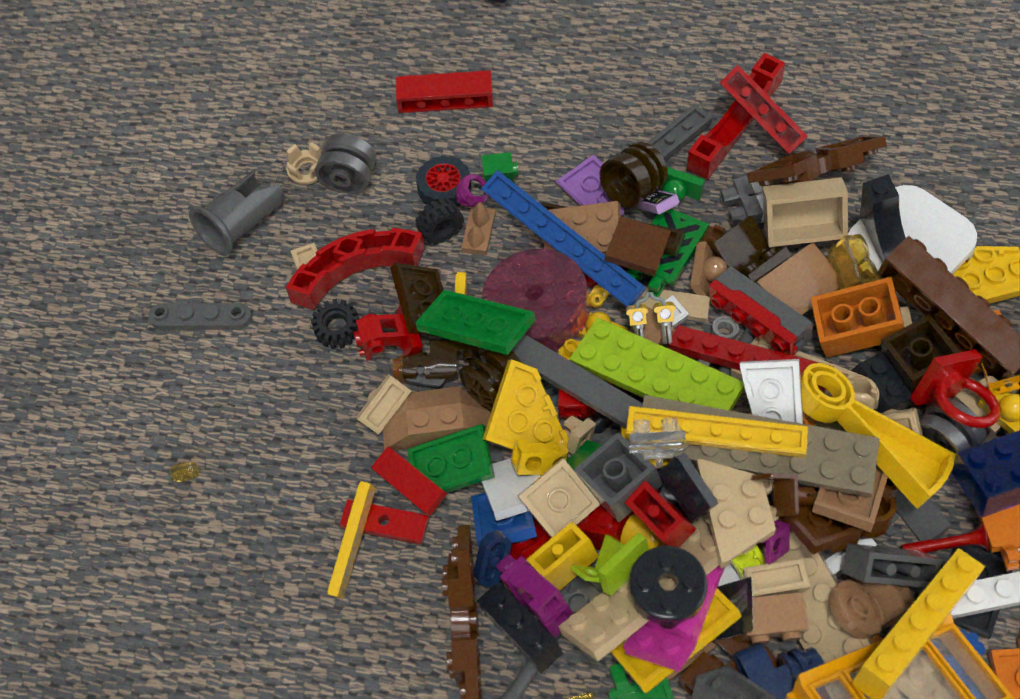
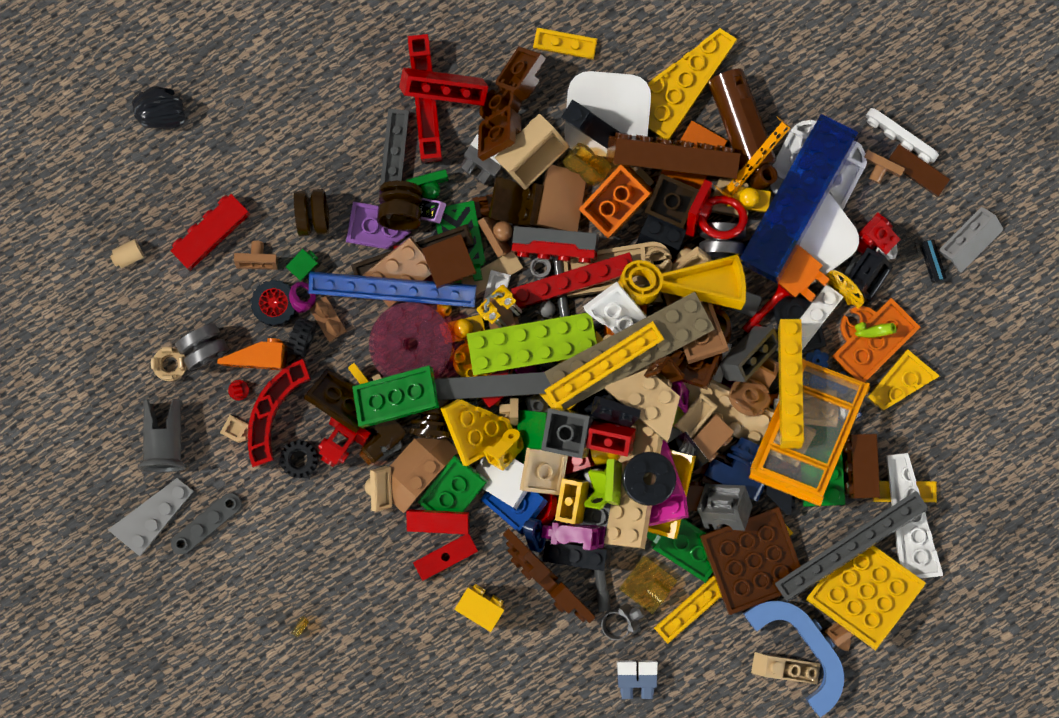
camera: 45 degrees left, 25 degrees up
(155, 275) = (150, 518): none -> light grey wing
(342, 227) = (238, 390): none -> red plate
(351, 540) = (440, 585): yellow tile -> none
(359, 61) = (126, 254): none -> tan brick
(368, 589) = (480, 607): none -> yellow brick
(382, 202) = (262, 355): none -> orange slope
(462, 139) = (256, 259): none -> medium nougat tile
(546, 129) = (314, 212): none -> dark brown wheel
(656, 444) = (584, 393): clear hips -> none
(914, 165) = (565, 43): none -> yellow tile

